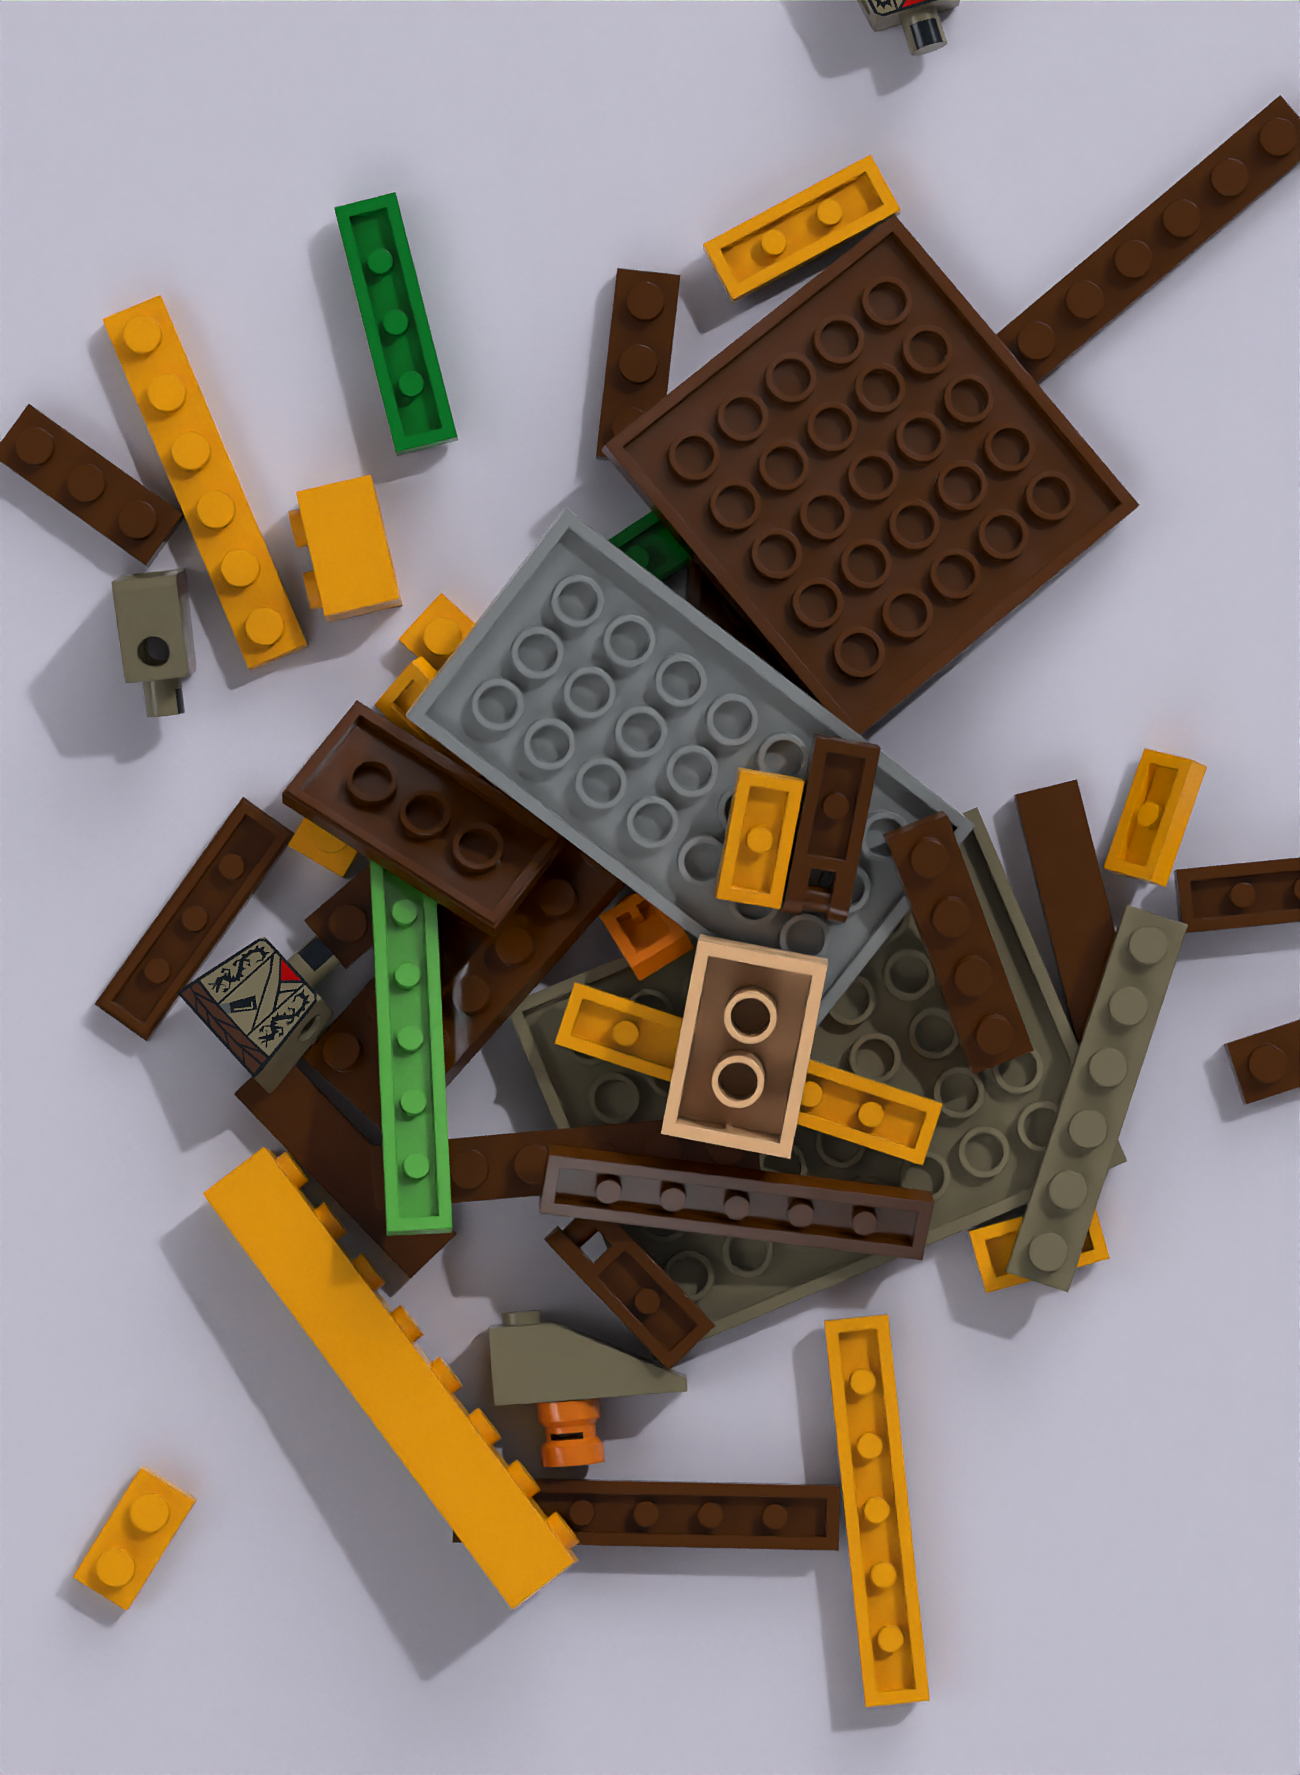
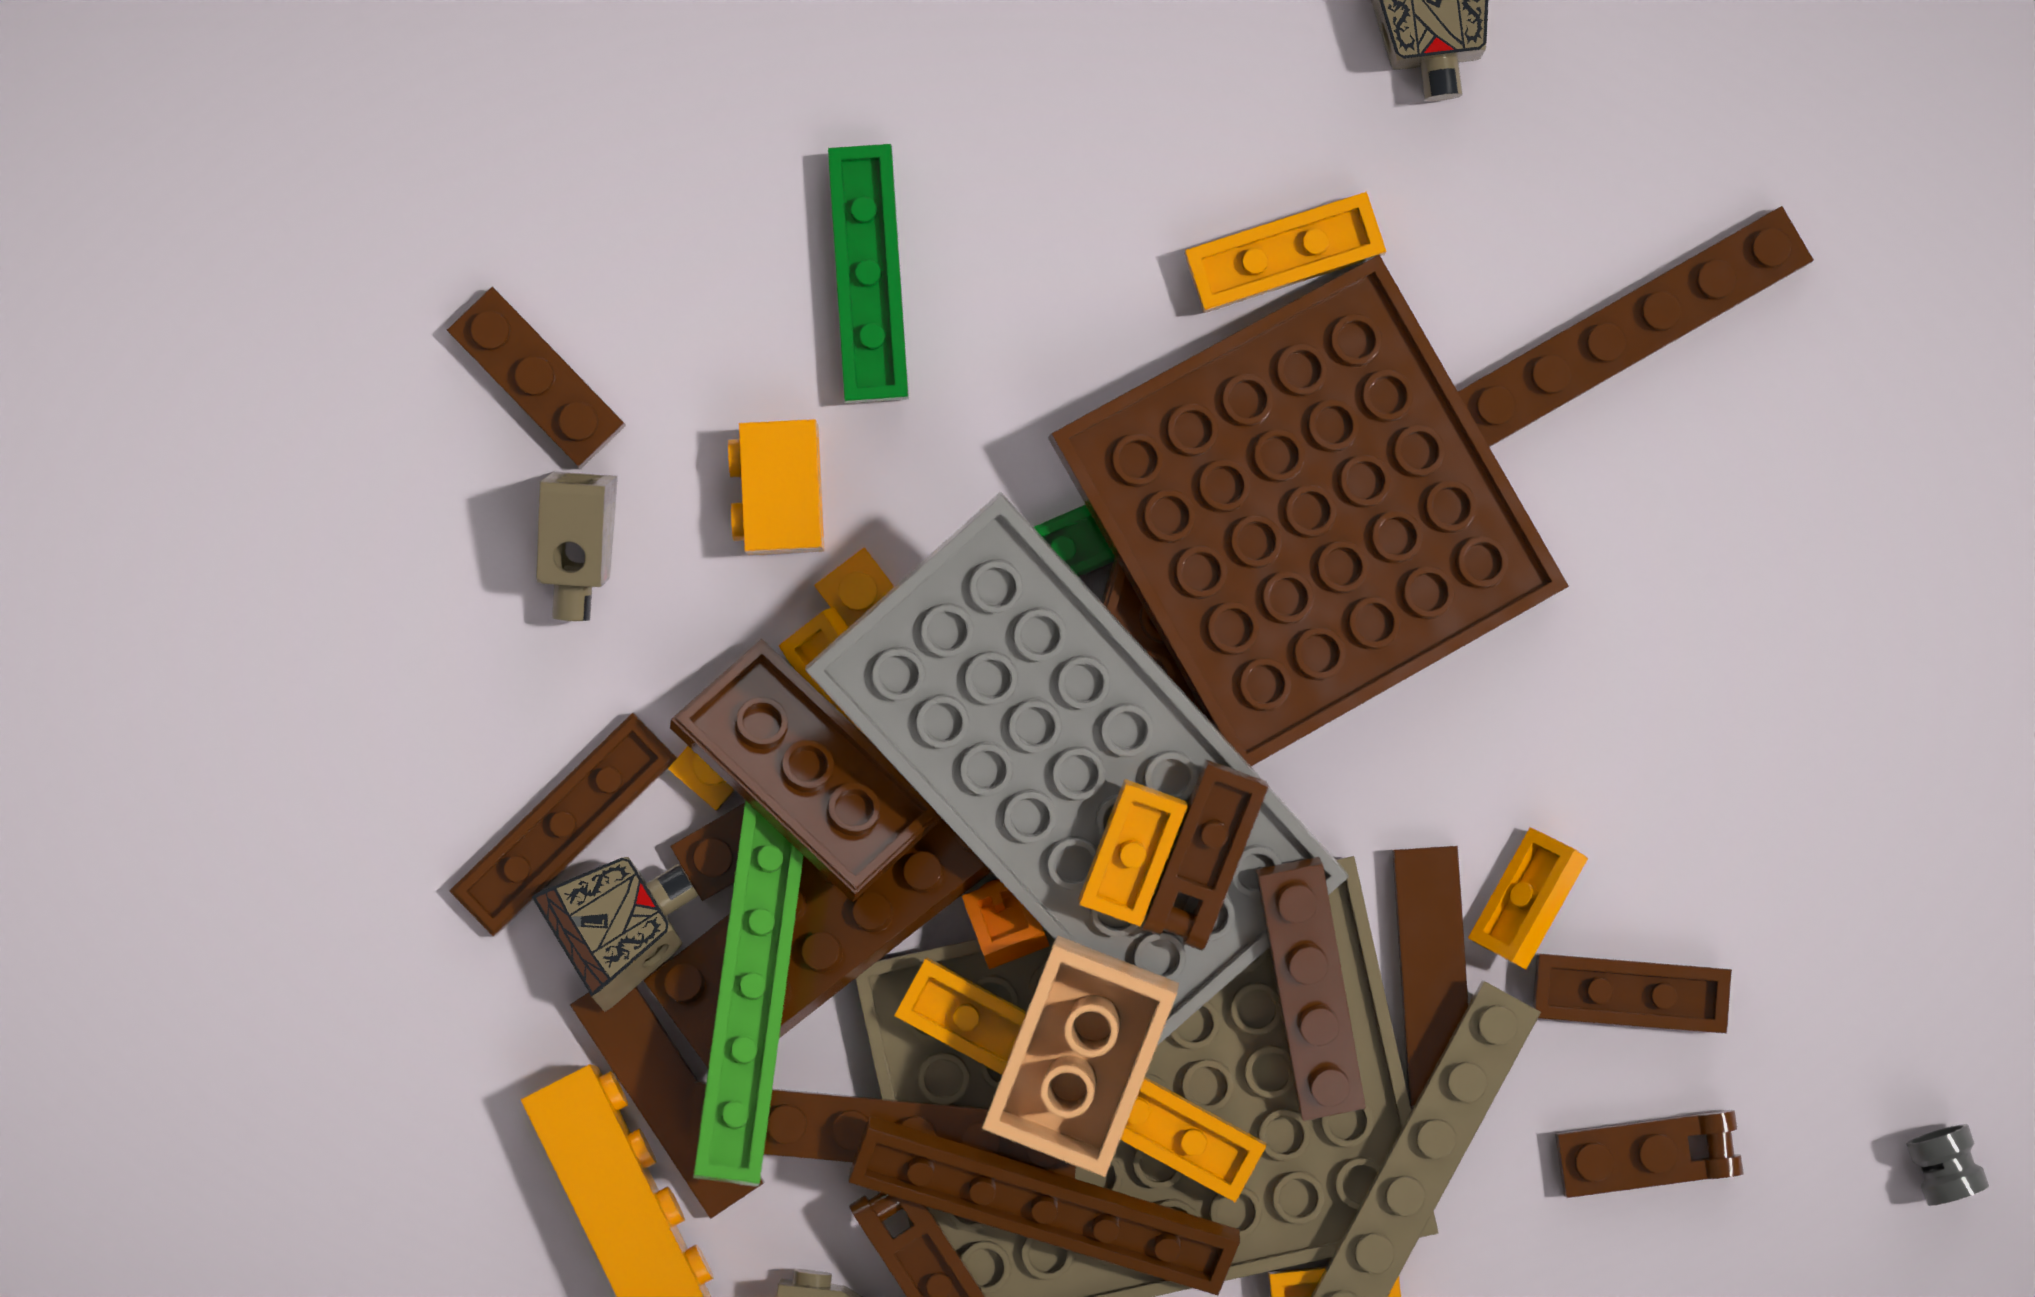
camera: 10 degrees right, 0 degrees up
(205, 482) = (652, 395): light orange plate -> none
(637, 349) = (1101, 342): reddish brown plate -> none

